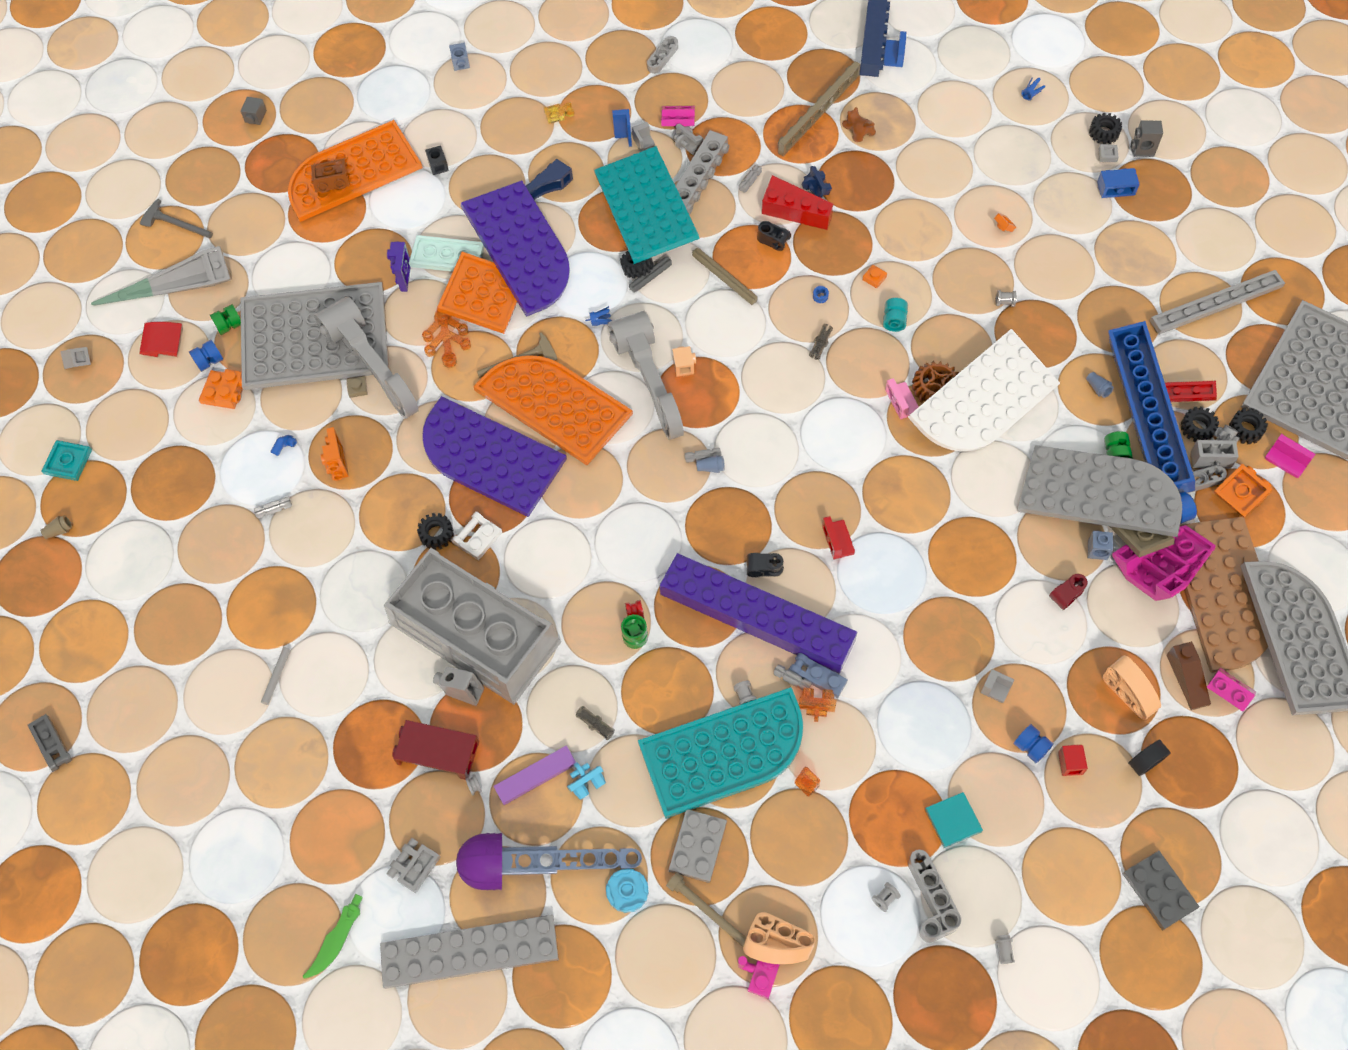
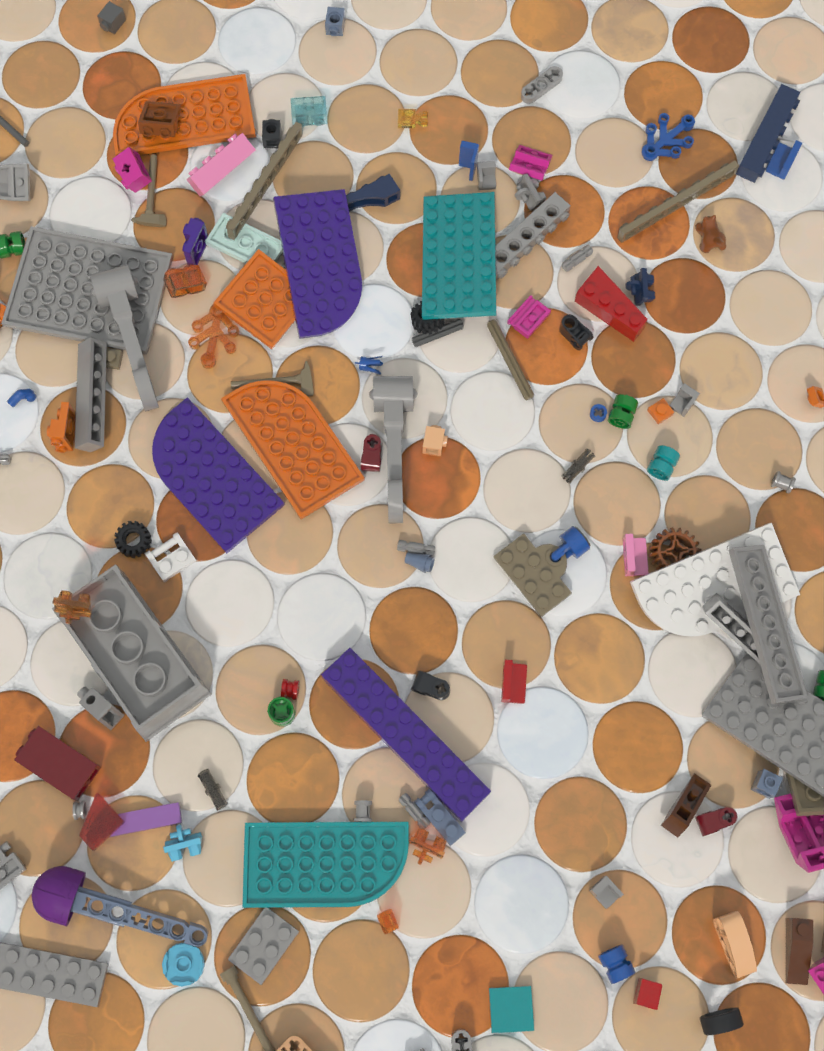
camera: 15 degrees right, 10 degrees up
(319, 225) = (132, 170): none -> dark pink brick
(348, 261) = (149, 217): none -> dark tan piece
(349, 421) = (90, 395): none -> light grey brick
(399, 197) = (221, 164): none -> bright pink brick
(402, 300) = (184, 281): none -> clear orange brick
(404, 595) = (70, 608): none -> clear orange hips
(443, 202) = (261, 185): none -> dark tan plate
(463, 132) = (309, 110): none -> clear light blue brick
(498, 788) = (100, 823): none -> clear red wing
(630, 388) = (371, 455): none -> dark red piece
(727, 236) = (529, 317): none -> dark pink plate
(780, 77) = (666, 139): none -> blue plant
(823, 436) = (539, 569): none -> dark tan plate
(842, 285) = (622, 412): none -> green wheel
(892, 259) = (684, 400): none -> light grey panel
(1020, 423) = (731, 623): none -> light grey brick
(1037, 589) = (686, 806): none -> reddish brown slope
(1045, 408) = (768, 624): none -> light grey plate

